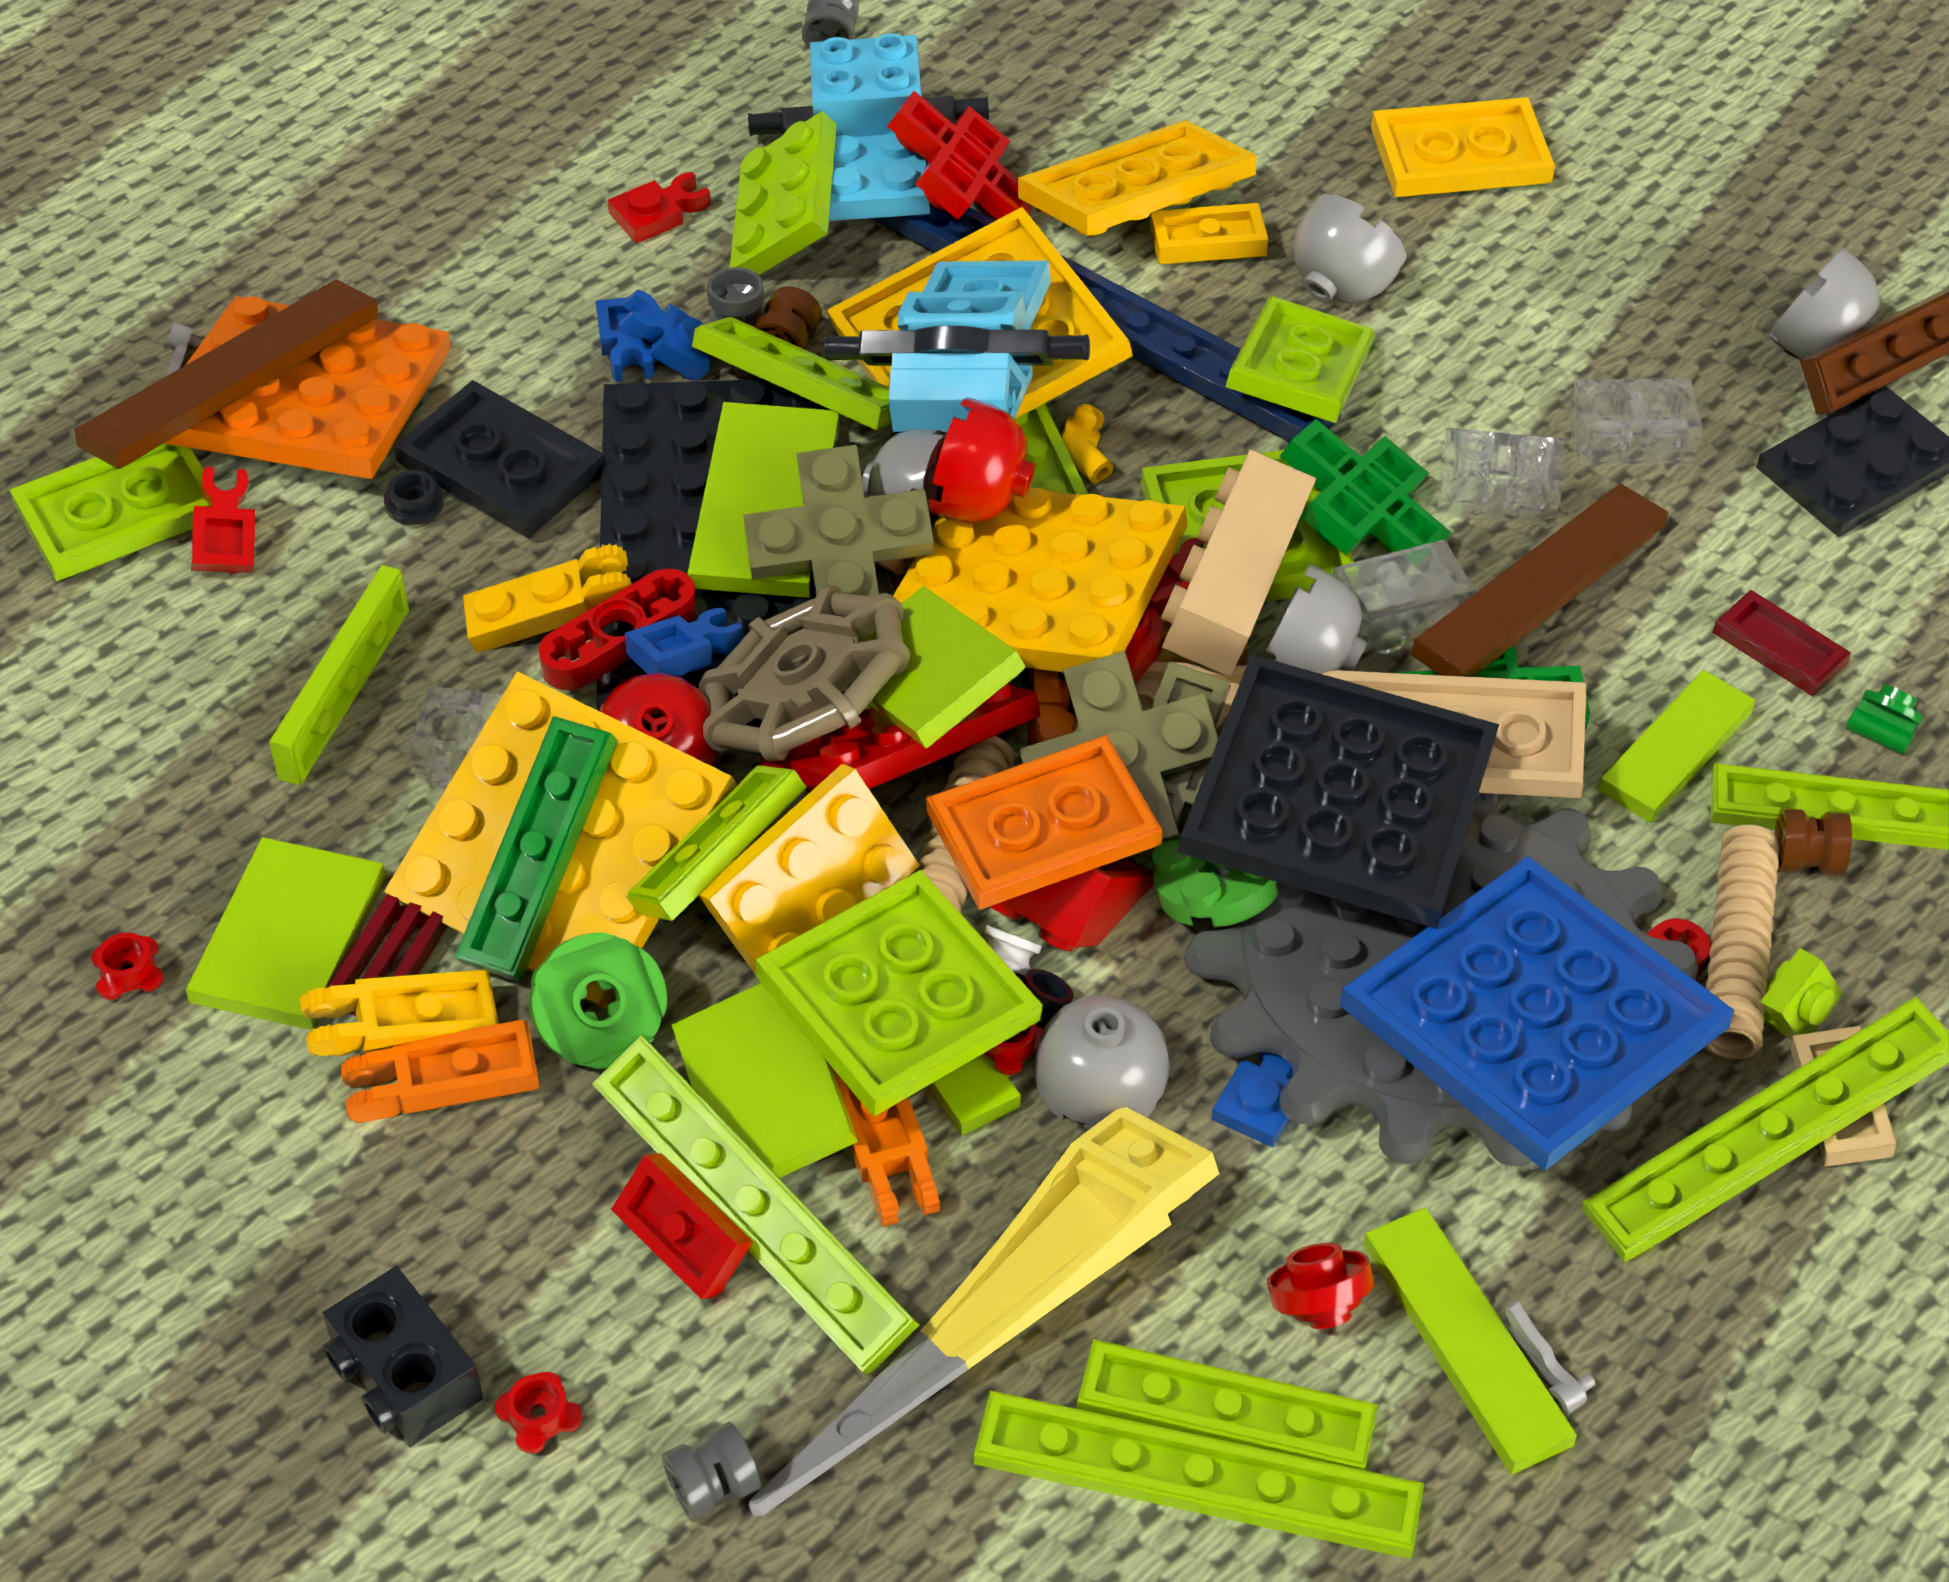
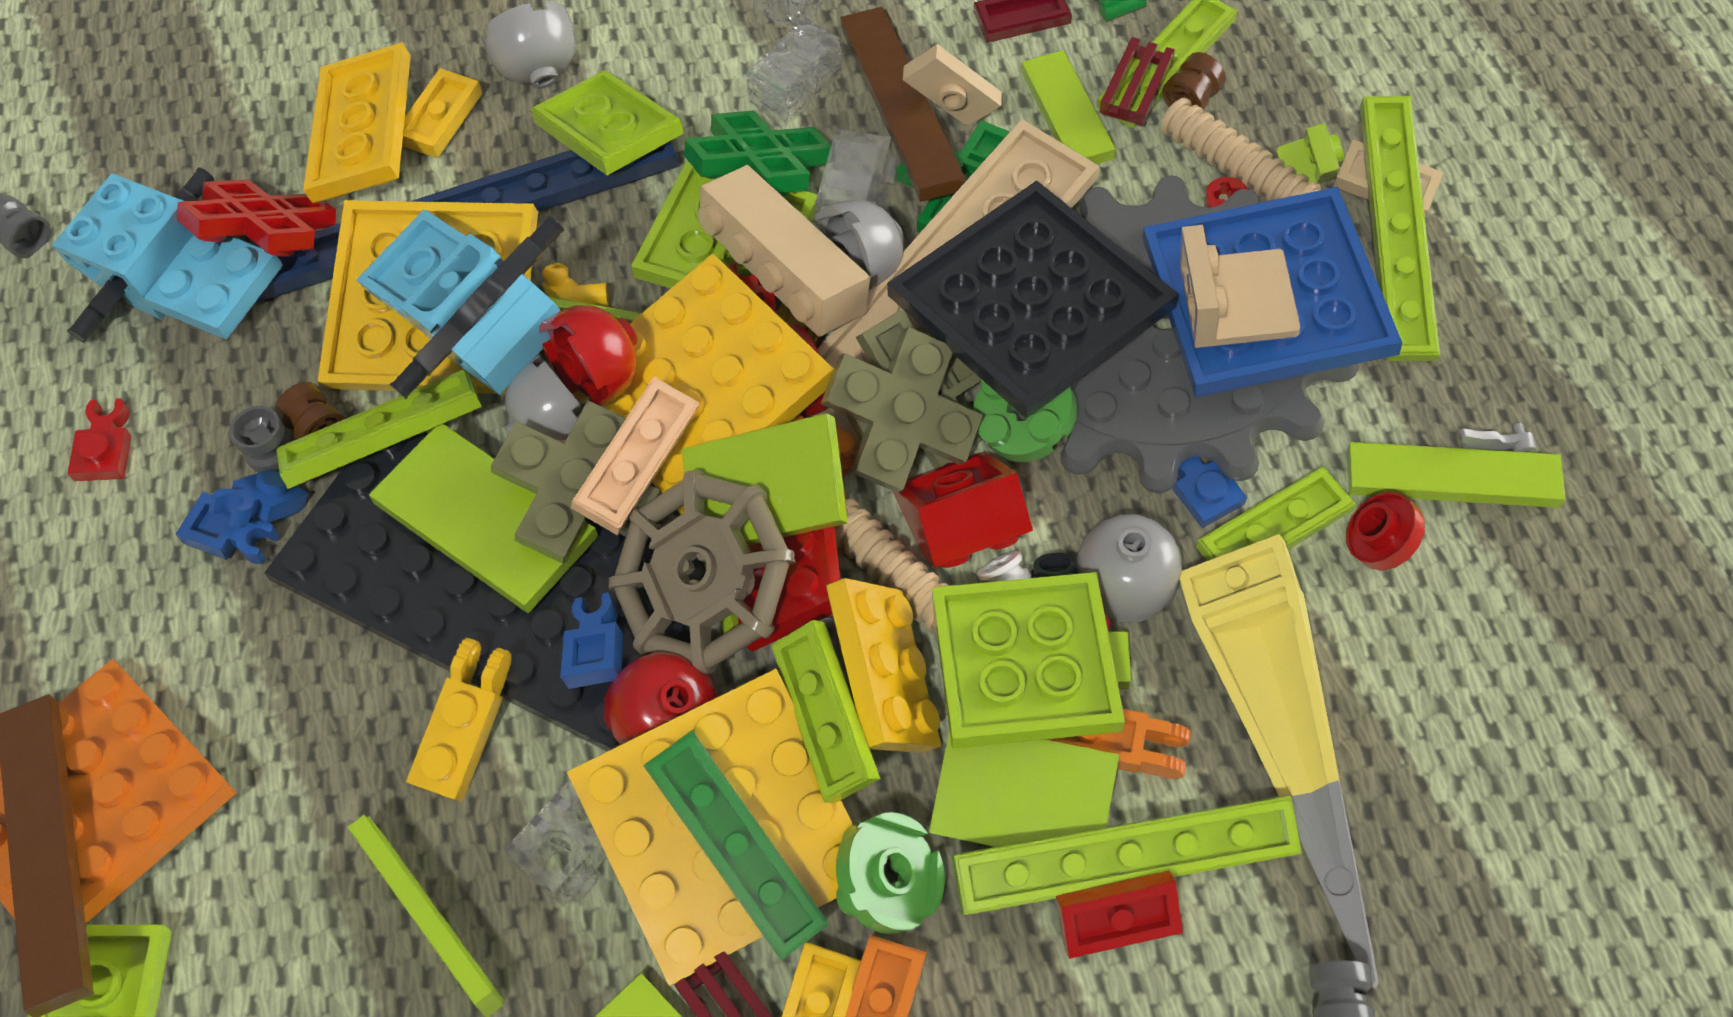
camera: 55 degrees left, 10 degrees up
(223, 533) = (199, 942): red plate -> none
(413, 498) = (264, 759): black plate -> none
(500, 458) = (281, 686): black plate -> none
(605, 651) = (554, 700): red beam -> none
(784, 195) = (183, 350): lime plate -> none
(892, 555) = (634, 455): none -> light nougat tile
(1043, 821) = (946, 487): orange tile -> none
(1200, 1474) = (1477, 688): lime tile -> none
(1226, 1405) = (1437, 641): lime tile -> none
(1278, 1188) = (1291, 513): none -> lime tile
(1473, 954) = (1235, 294): none -> tan bracket
(1589, 609) = (952, 85): none -> tan plate
(1760, 774) = (1147, 56): none -> dark red tile

